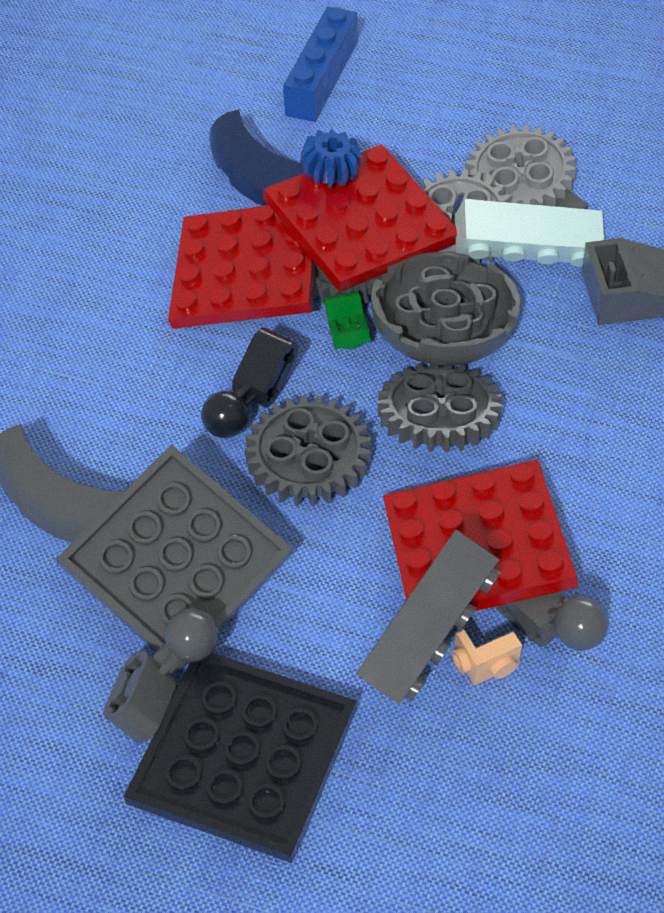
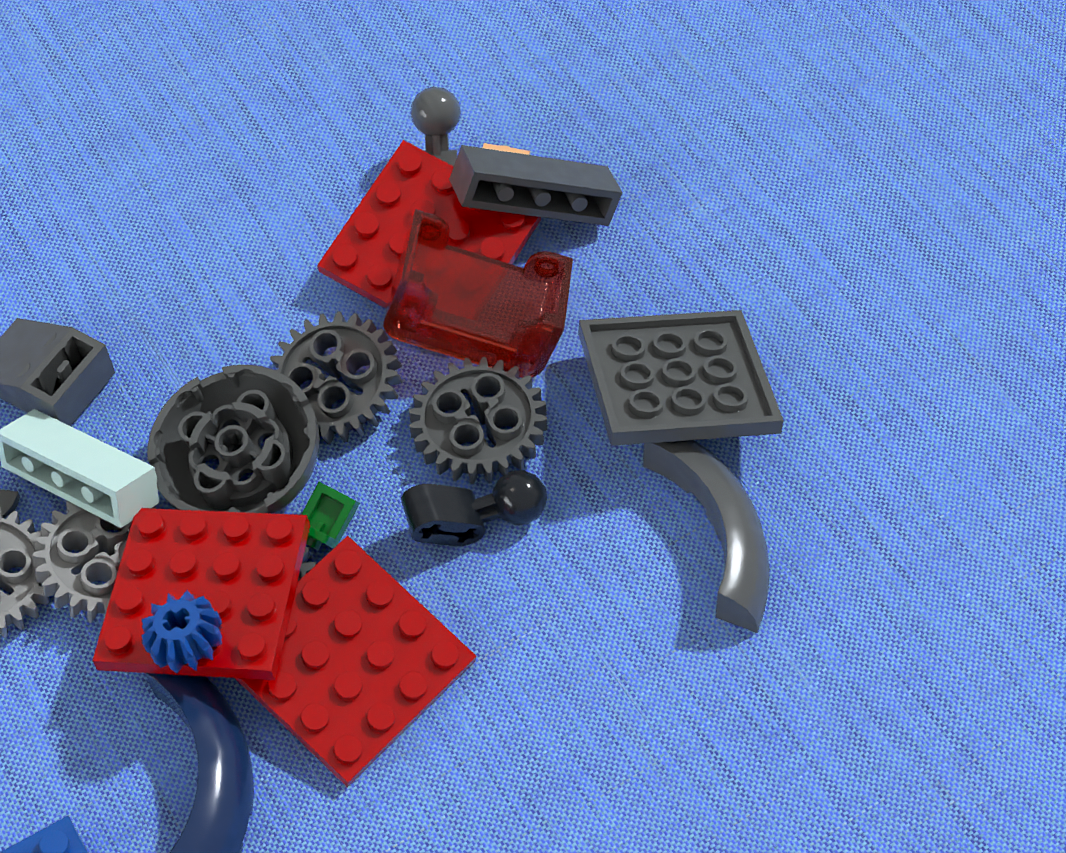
camera: 140 degrees left, 5 degrees up
(147, 681) = (723, 297): dark grey beam -> none
(242, 755) = (742, 226): black plate -> none
(385, 502) = (475, 303): none -> clear red windscreen

